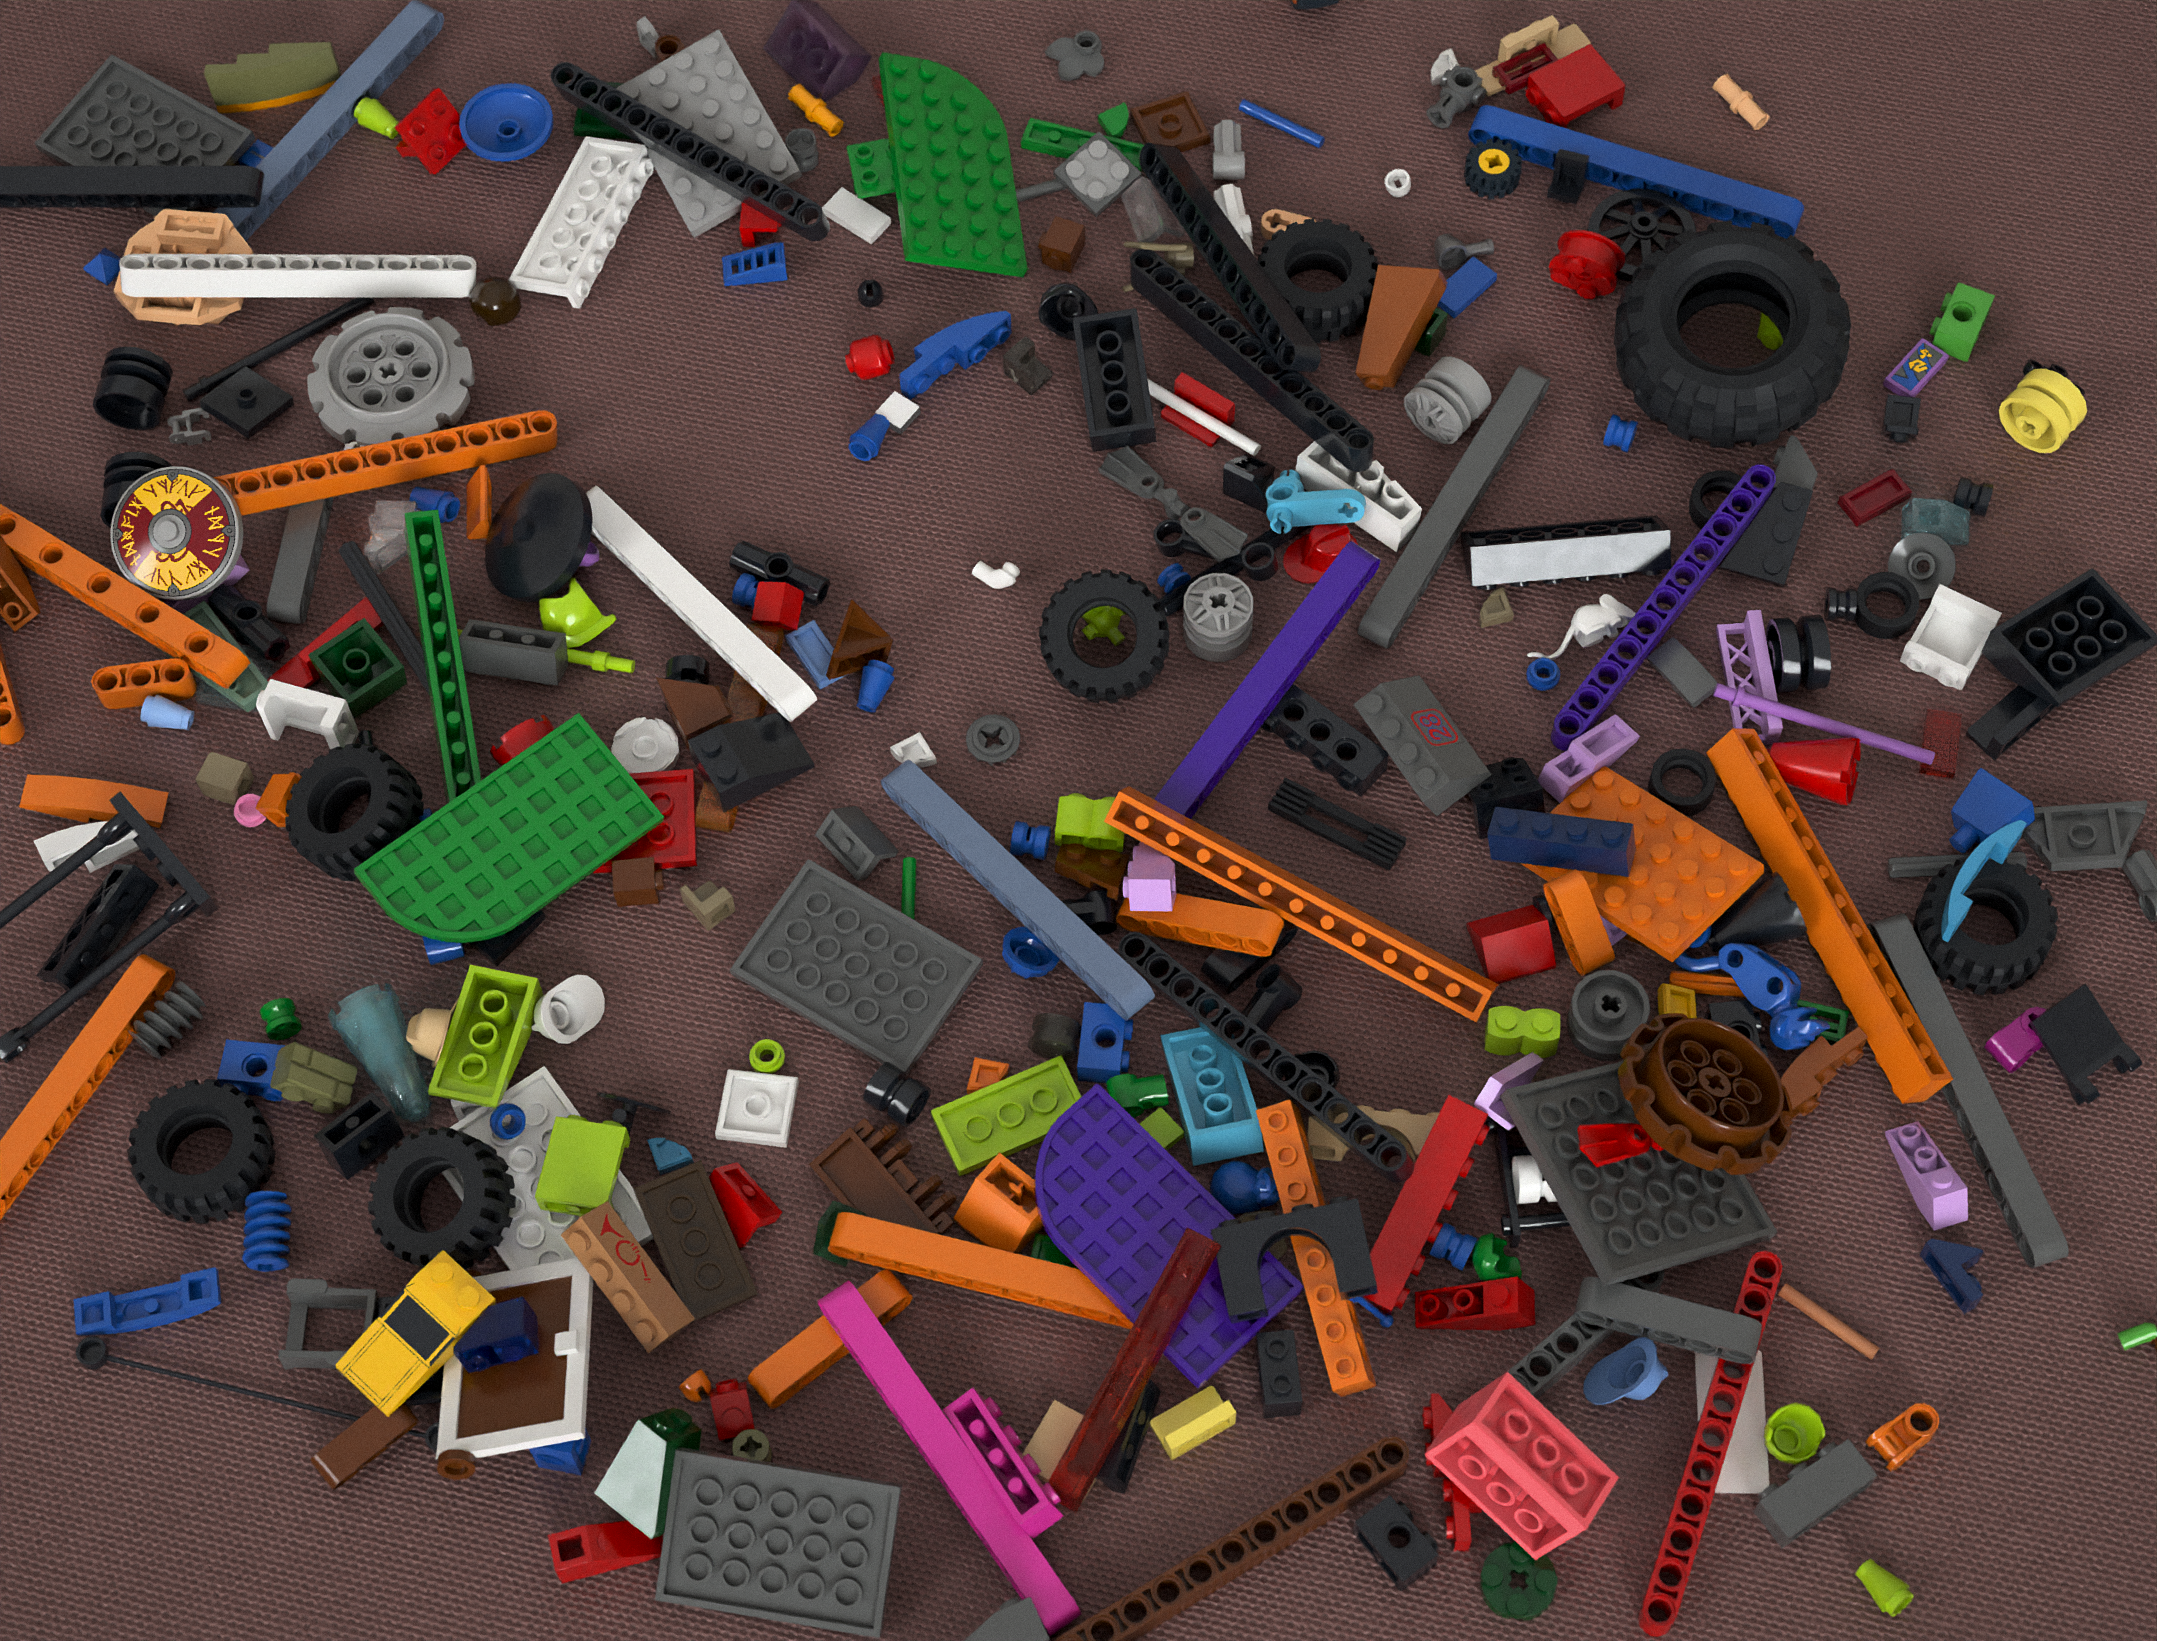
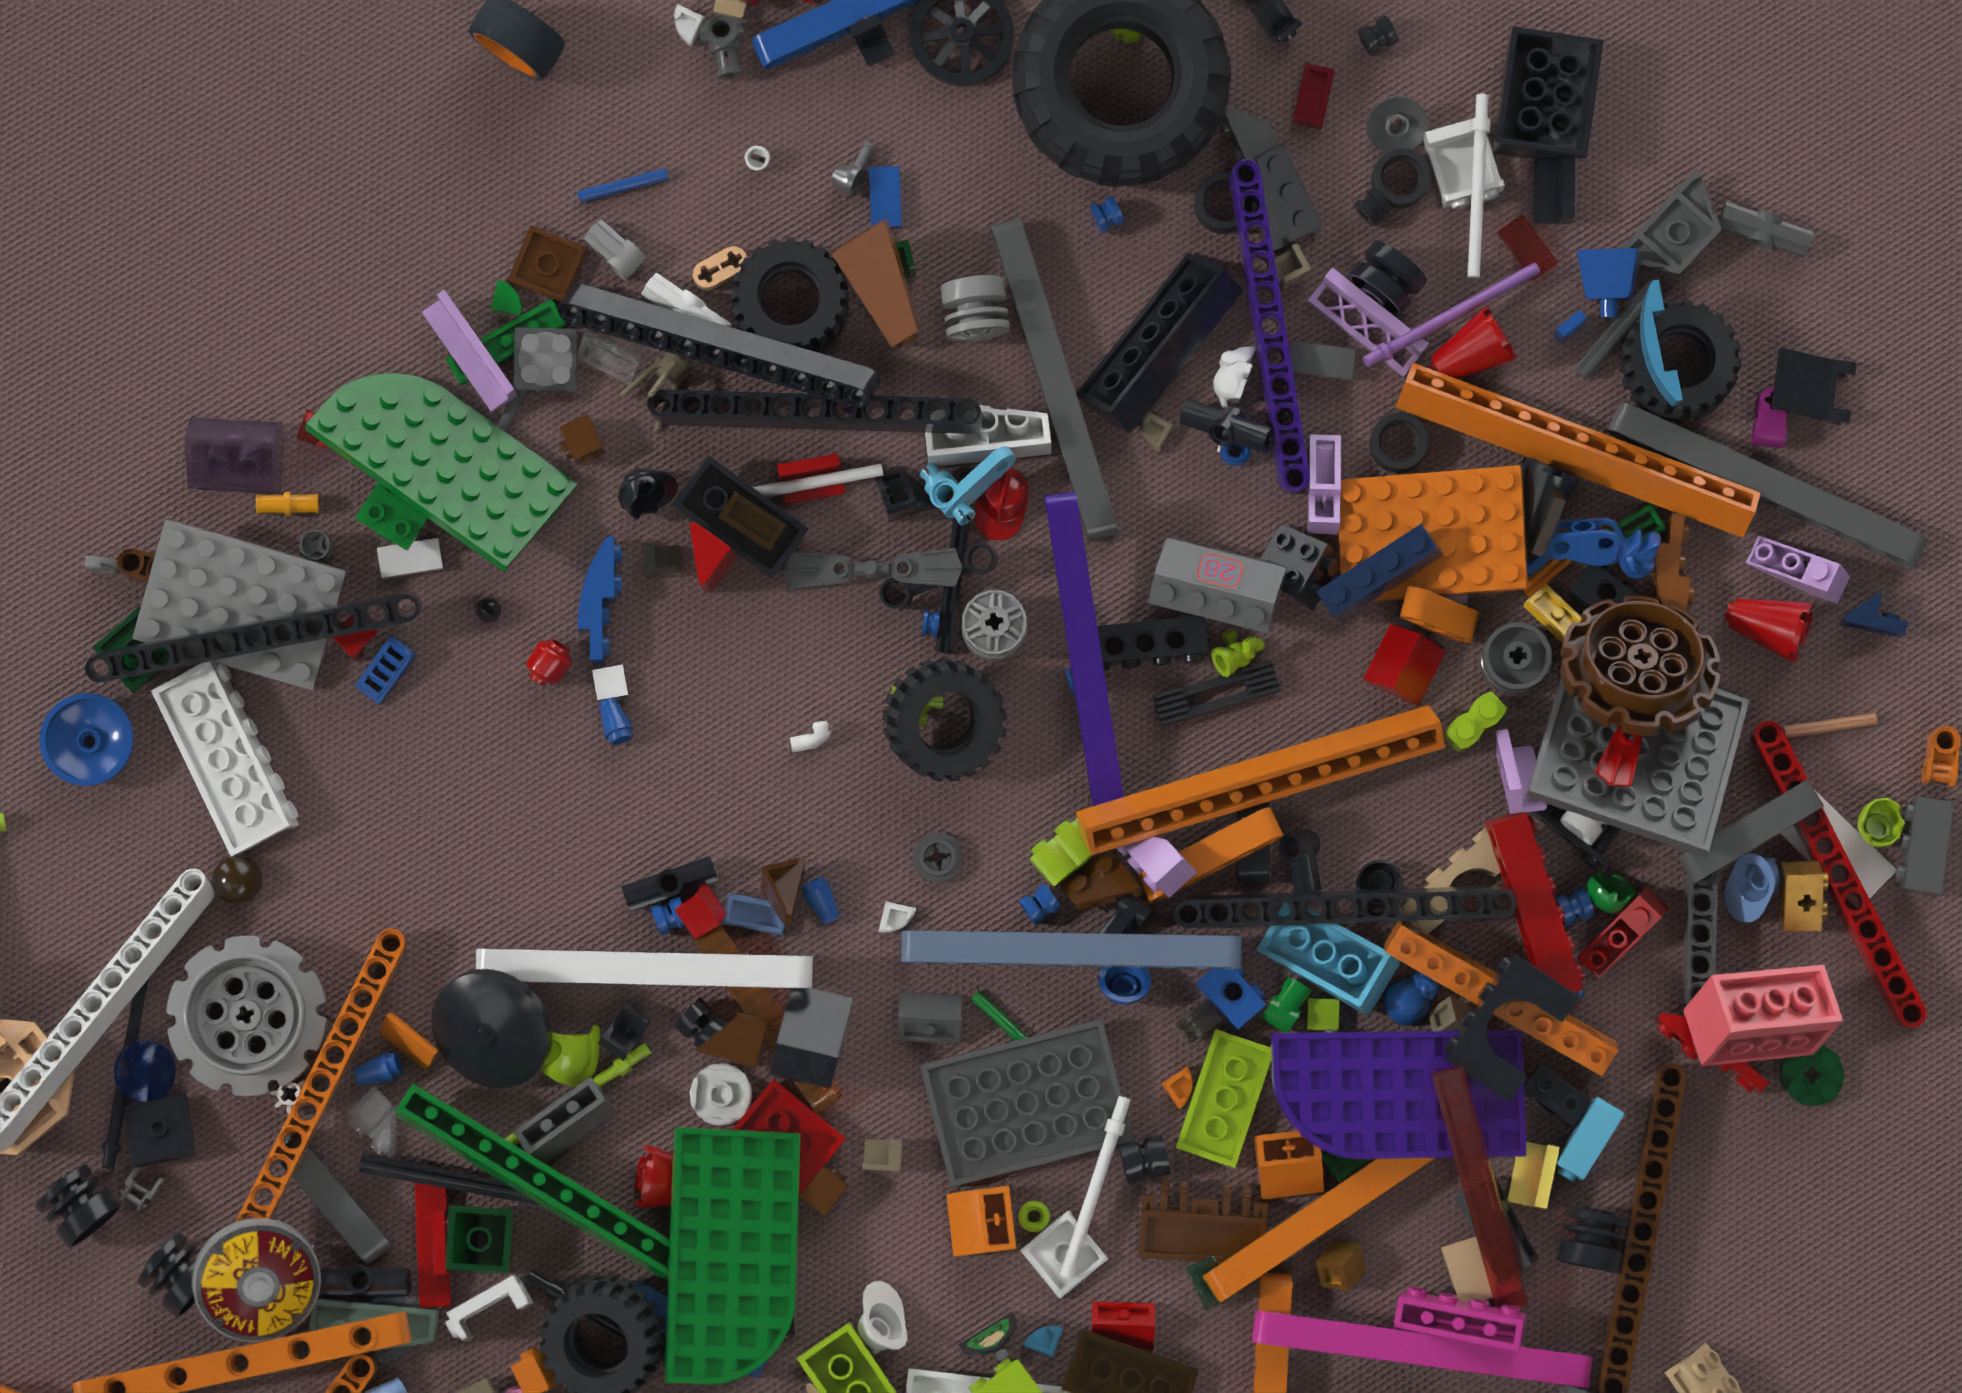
camera: 50 degrees left, 20 degrees up
(284, 356) = (144, 1071): none -> clear blue dish
(431, 132) = (41, 800): red bracket -> none
(627, 639) = (624, 1032): none -> black bracket
(726, 1018) = (981, 1221): none -> orange slope
(899, 1046) = (1114, 1128): none -> white bar
(958, 1330) = (1341, 1265): none -> pearl gold panel
(1050, 123) = (469, 352): none -> lavender fence
(1058, 387) = (711, 557): none -> red slope
(1077, 55) = (421, 276): dark grey plate -> none
(1118, 380) = (752, 521): none -> dark brown tile
(1188, 1510) = (1593, 1240): none -> black wheel
(1268, 1432) = (1588, 1139): none -> medium azure slope
(1386, 810) = (1237, 654): none -> lime piece
(1400, 1564) = (1705, 1128): black brick -> none
(1495, 181) = (812, 91): black wheel -> none
(1554, 643) = (1227, 426): none -> black piece
(1587, 263) = (959, 104): red wheel -> none
(1641, 1429) = (1795, 911): none -> pearl gold brick
(1726, 591) = (1291, 267): none -> dark tan panel
(1742, 927) = (1547, 522): none -> dark brown tile
(1861, 1193) = (1772, 624): none -> red cone
(1916, 823) = (1570, 326): none -> blue tile
(1937, 518) = (1375, 83): clear light blue slope -> none
(1989, 615) = (1481, 127): none -> white bar

